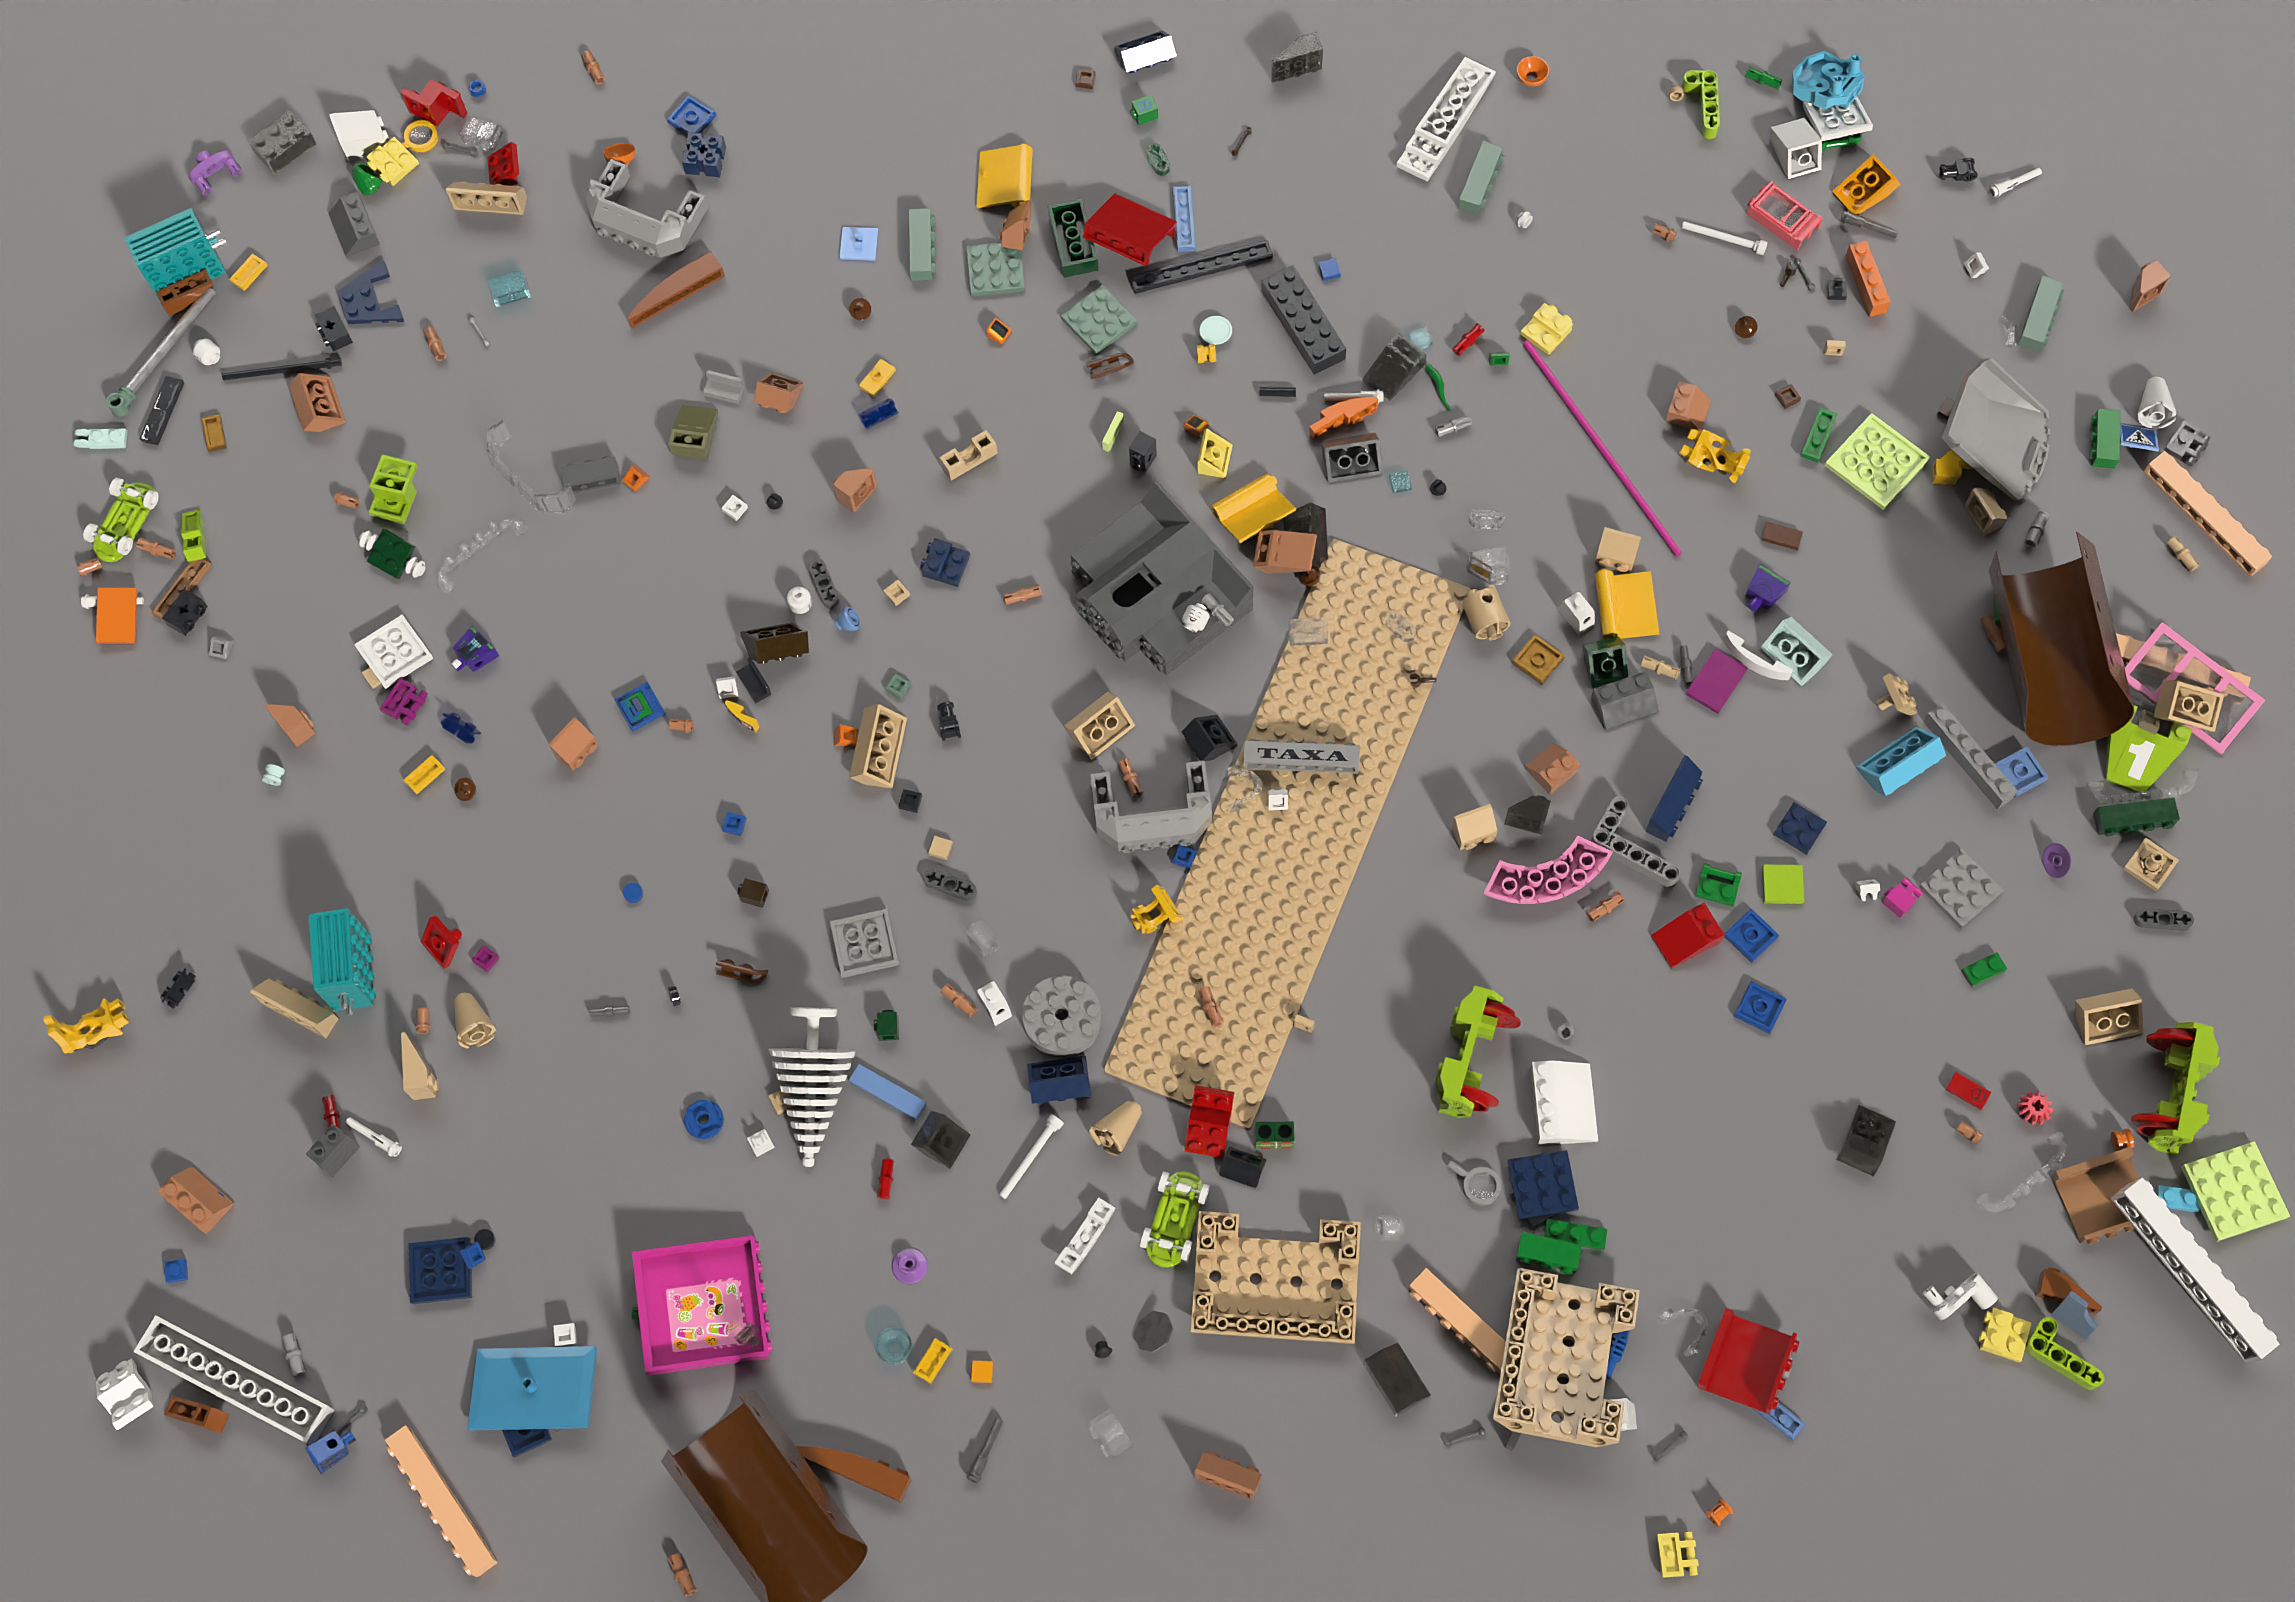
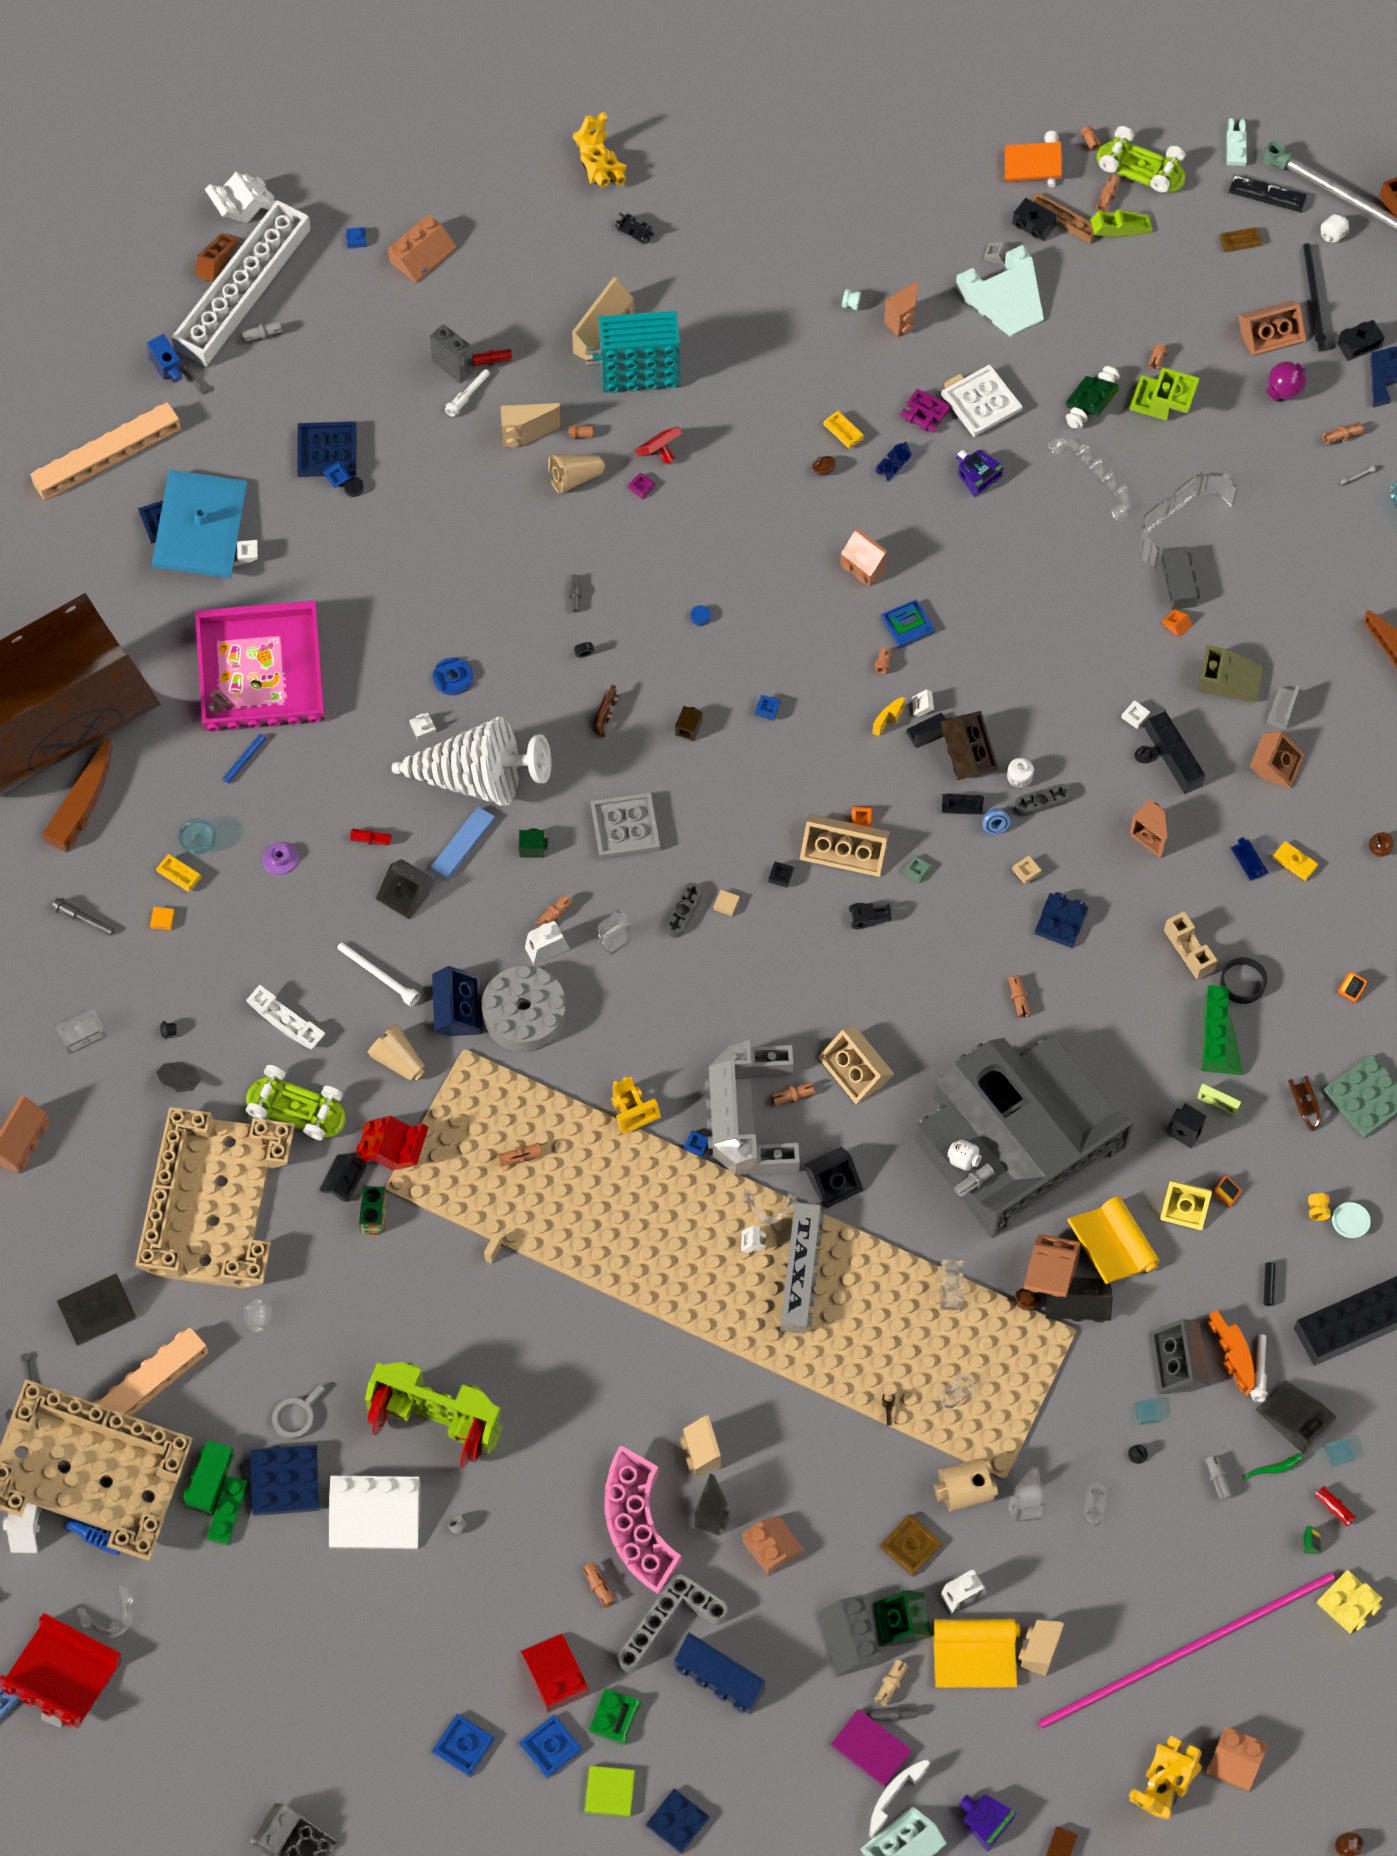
camera: 90 degrees right, 5 degrees down
(277, 631) = (1007, 298): none -> light aqua wedge
(380, 387) = (1286, 381): none -> magenta brick
(774, 473) = (1175, 752): none -> black brick
(801, 1313) = (244, 758): none -> blue bar
(830, 649) = (962, 804): none -> black hinge
(996, 399) = (1250, 962): none -> black tyre
(1048, 435) = (1219, 1041): none -> green wedge

